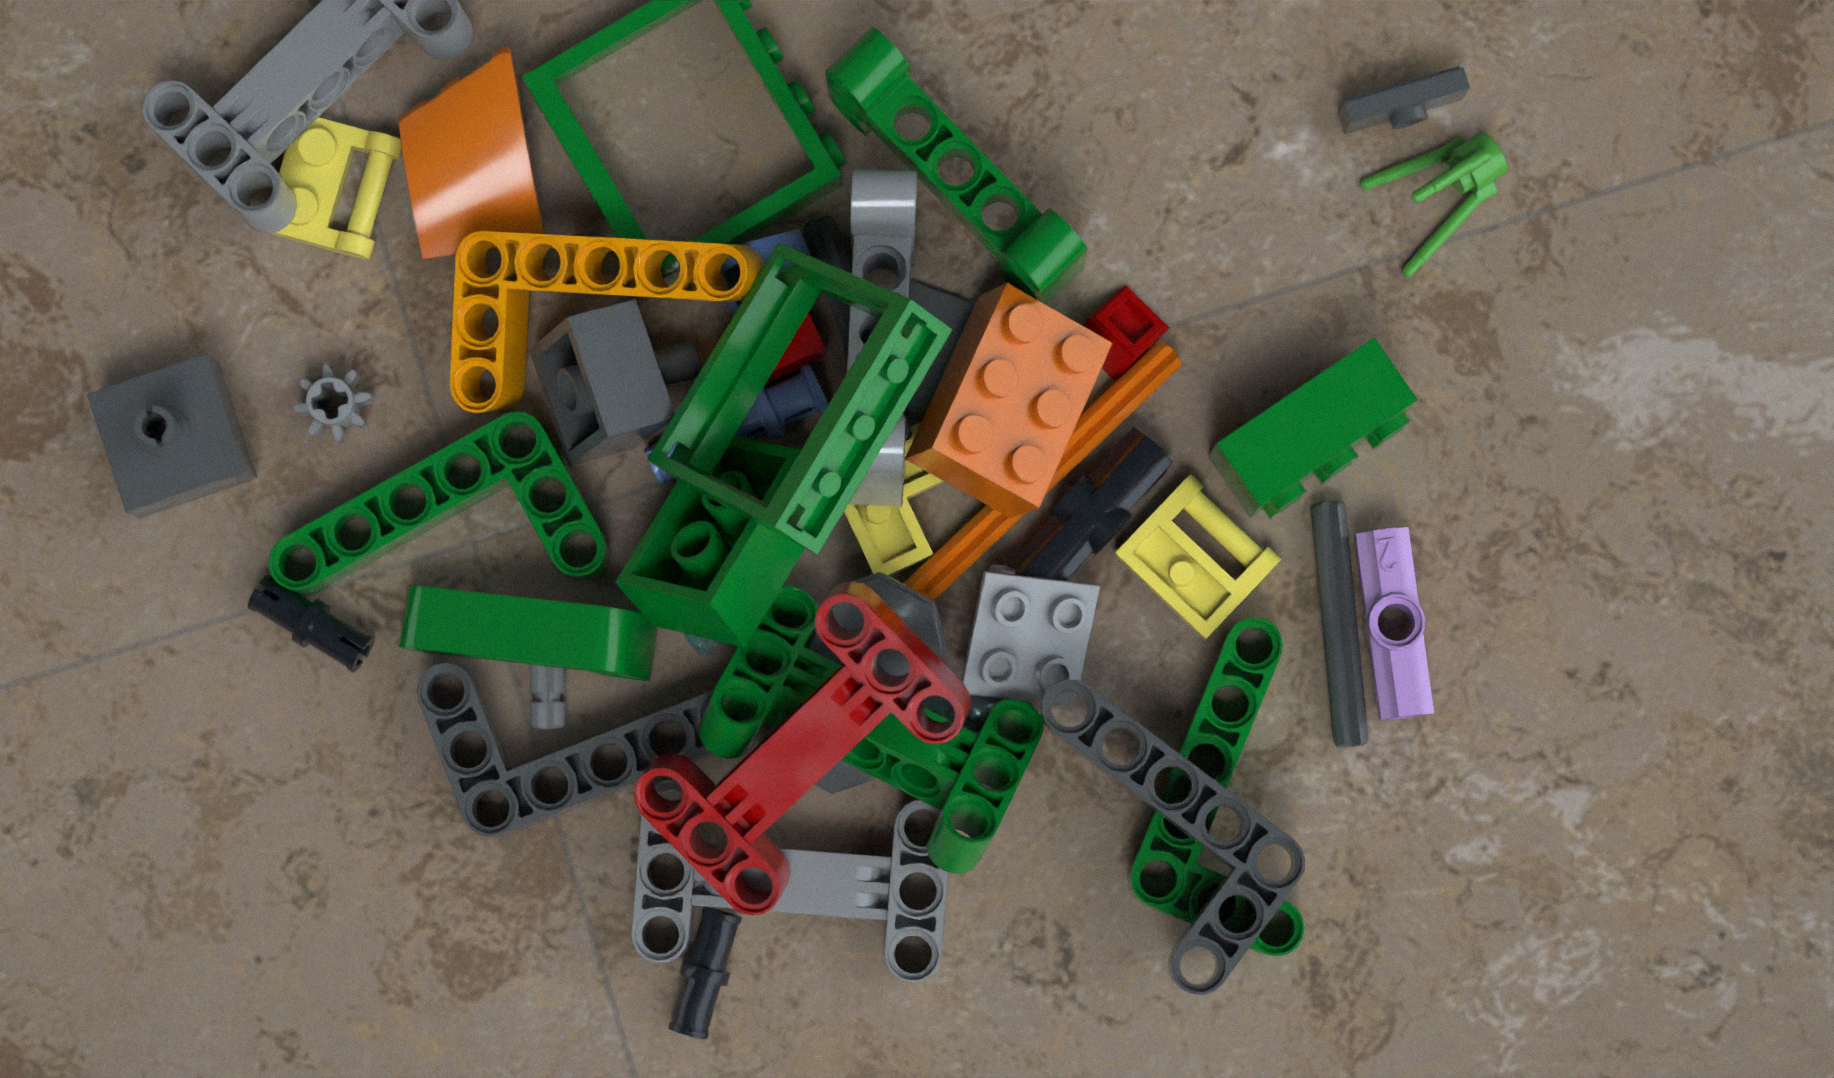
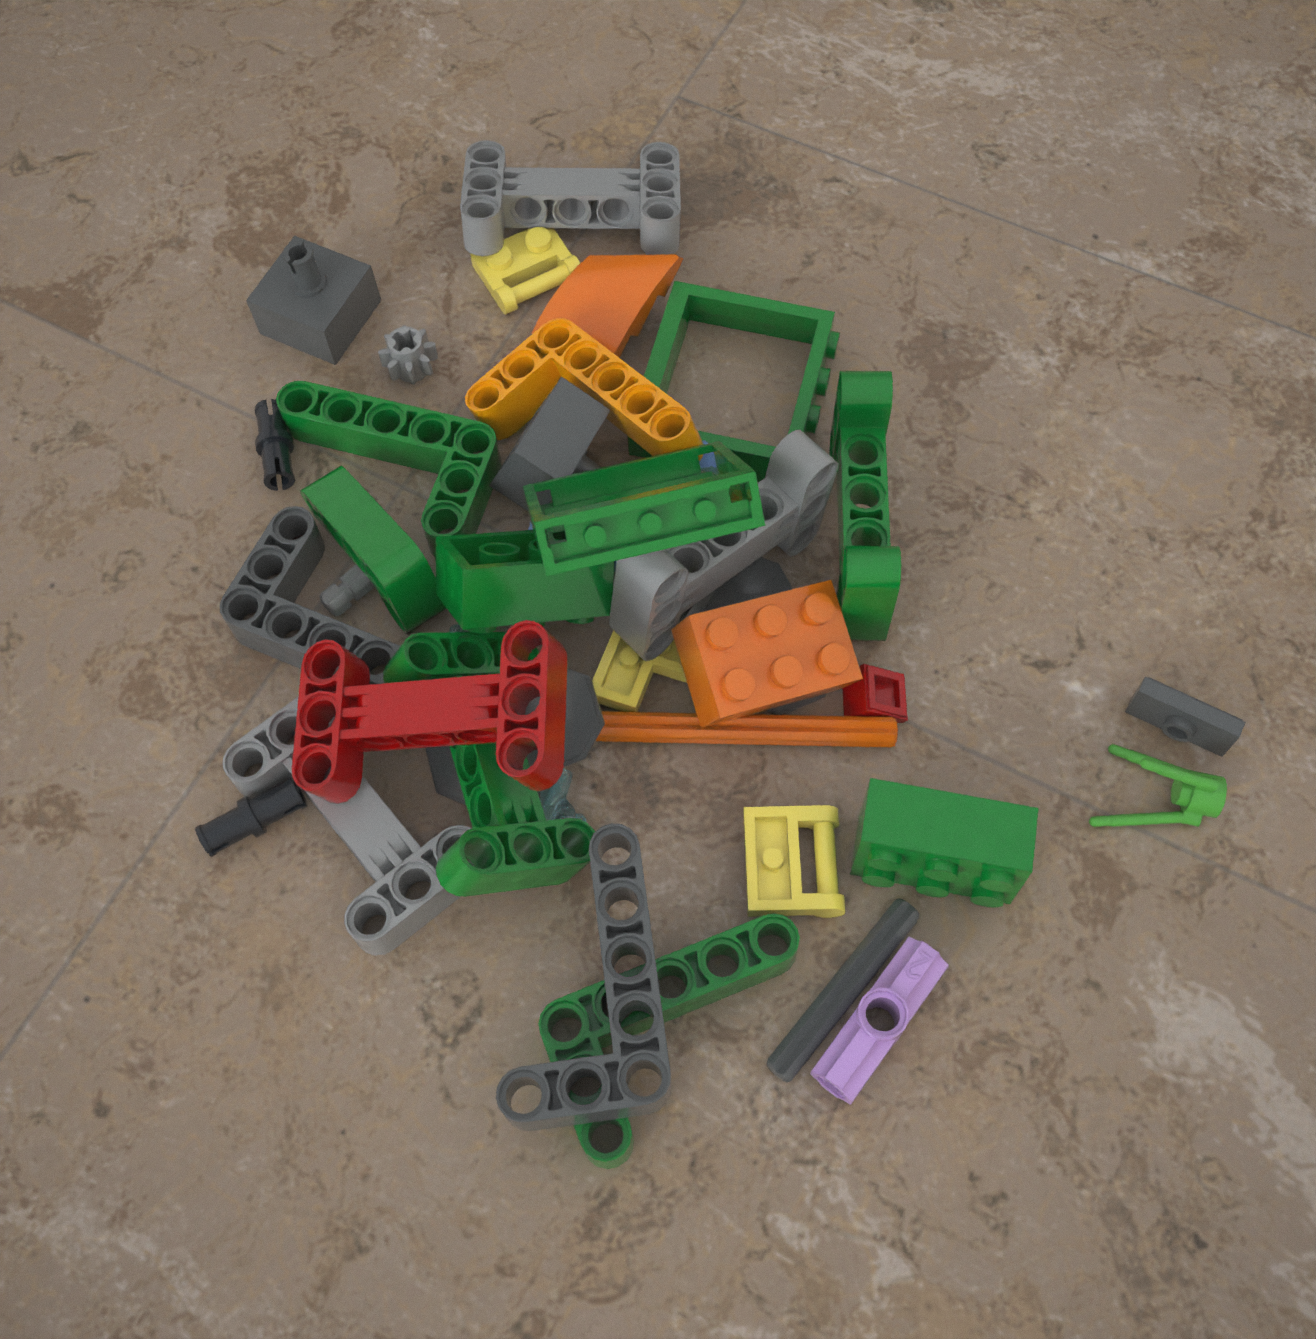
camera: 45 degrees right, 20 degrees down
(1028, 635) = (645, 794): light grey hinge -> none
(1093, 509) = (752, 774): black piece -> none

